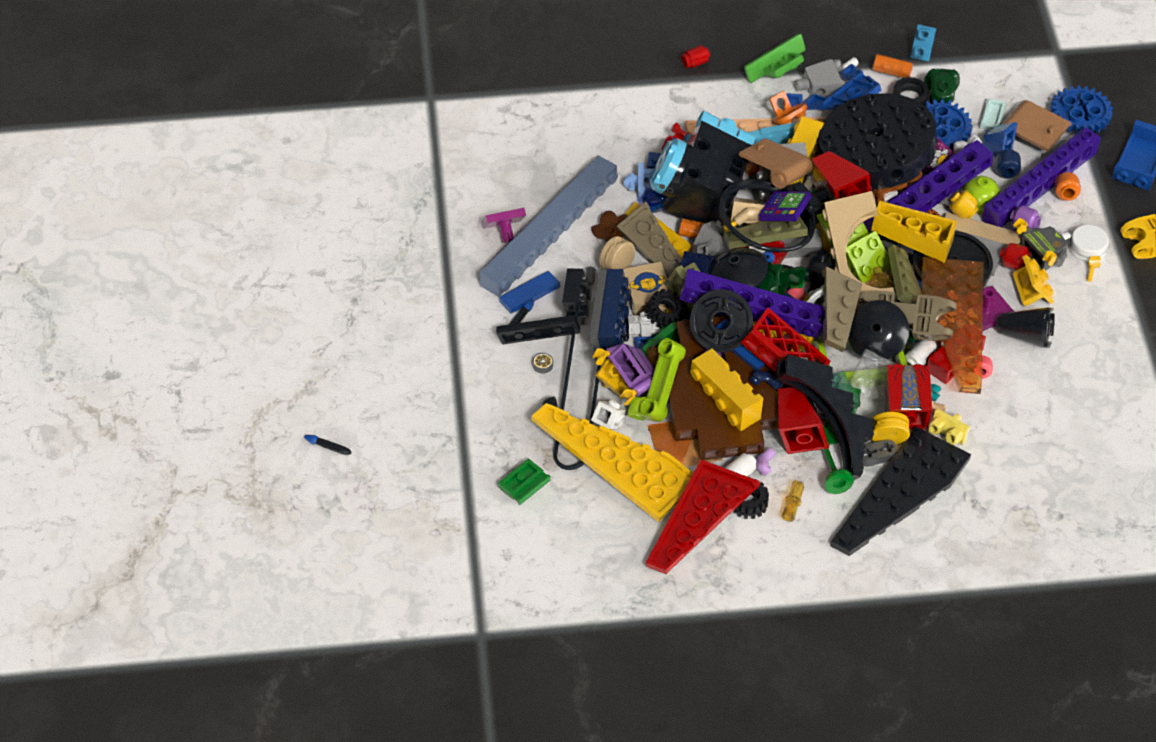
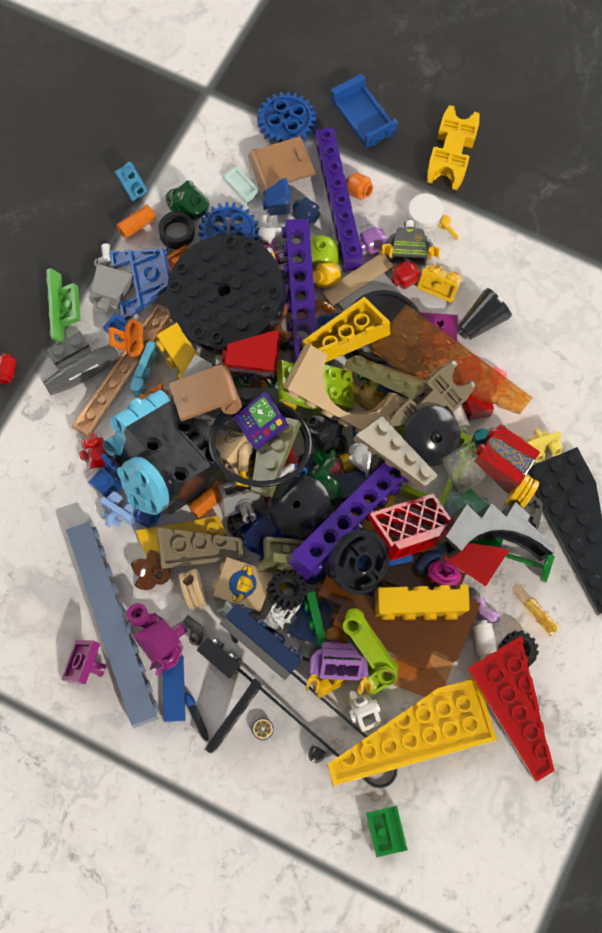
camera: 60 degrees left, 20 degrees up
(558, 255) = (157, 638): none -> magenta torso
(739, 94) = (77, 363): none -> dark grey plate
(764, 388) = (451, 573): none -> dark pink gear

